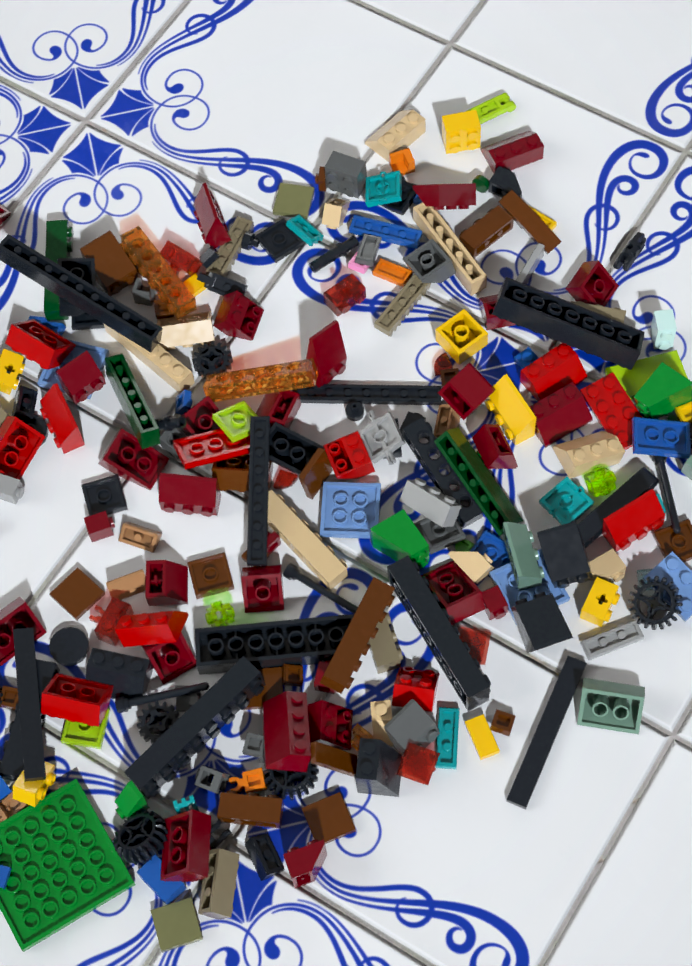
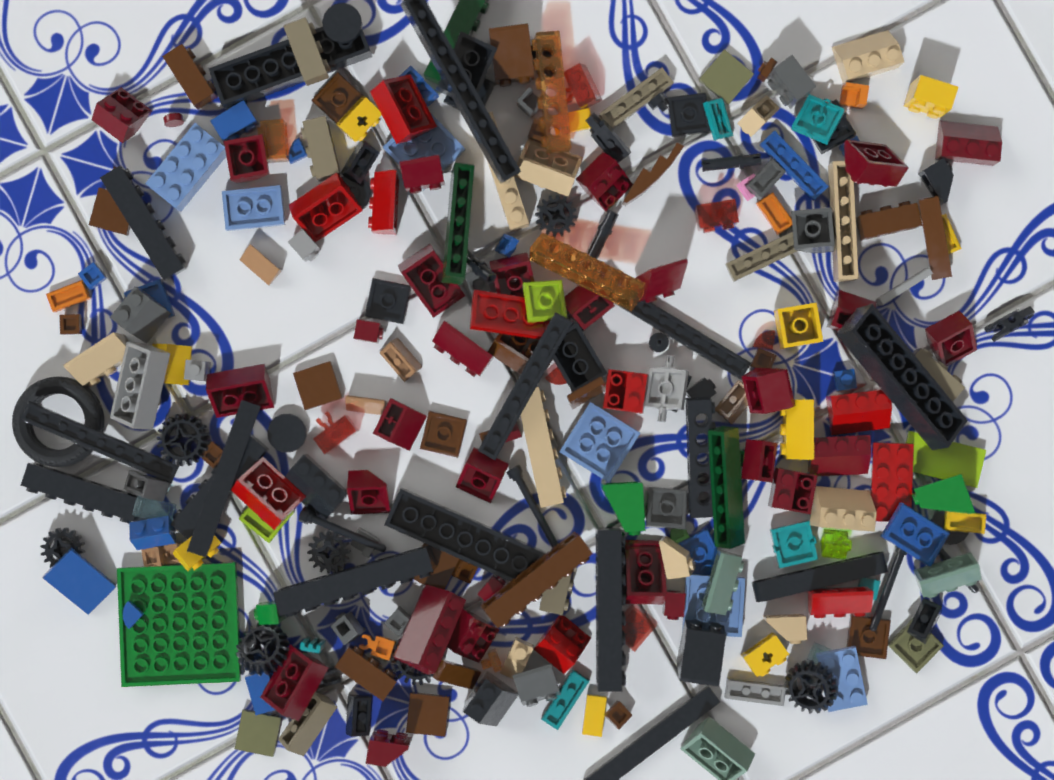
camera: 20 degrees right, 25 degrees up
(150, 628) = (364, 465): red slope -> none
(209, 257) = (610, 100): black tile -> none
(210, 218) = (633, 59): dark red slope -> none
(226, 611) = (430, 482): clear neon green brick -> none
(259, 349) = (604, 231): none -> black pin
(273, 296) = (648, 178): none -> reddish brown slope
(418, 763) = (526, 714): clear red piece -> none
(430, 502) = (672, 482): light grey brick -> none
(482, 183) = (915, 164): dark green tile -> none
(493, 107) = (977, 81): lime plate -> none
(537, 460) = (792, 490): none -> dark red slope
(565, 555) = (758, 607): black slope -> none
(663, 329) = (986, 427): light aqua brick -> none

